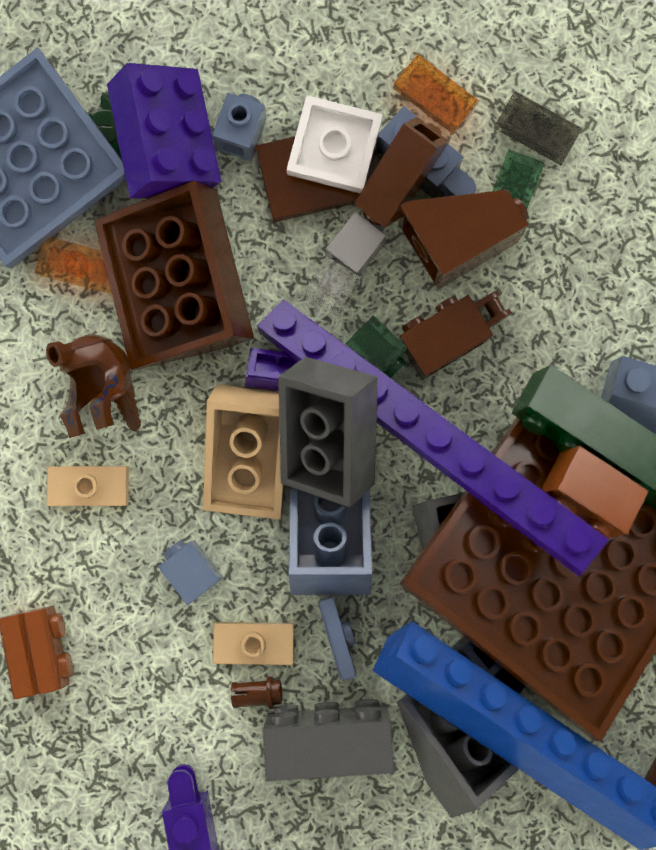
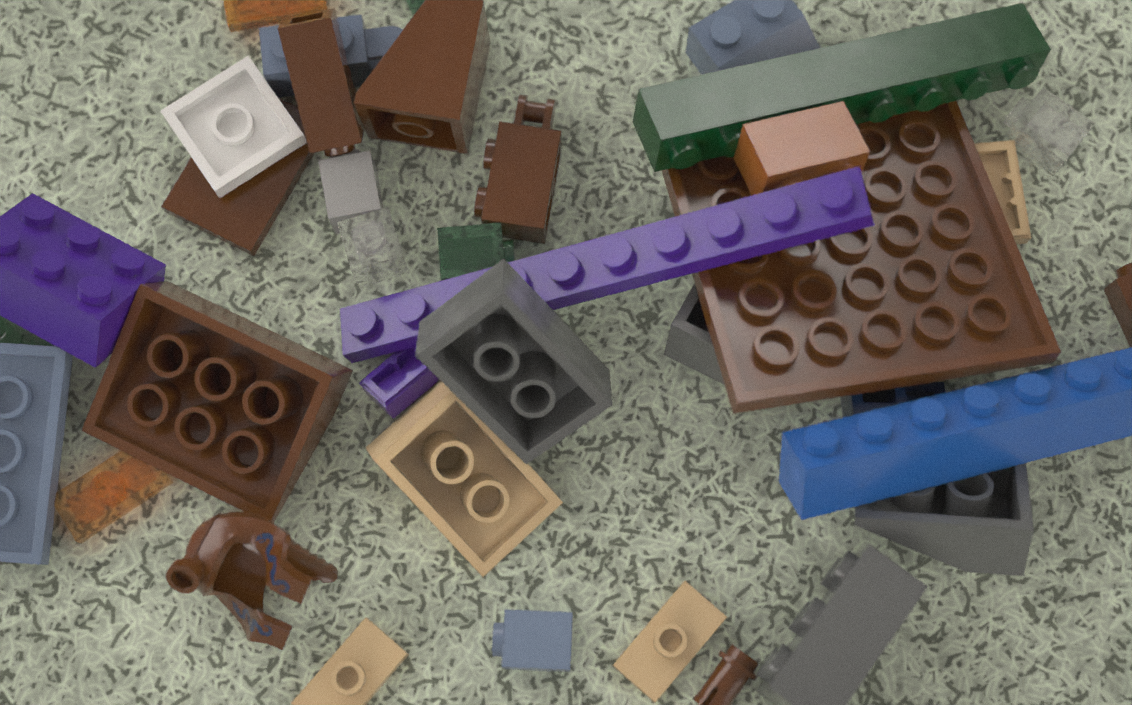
camera: 50 degrees left, 10 degrees down
(239, 125) = (127, 203): sand blue brick -> none
(329, 546) = (632, 470): sand blue slope -> none
(339, 636) = (737, 541): sand blue plate -> none

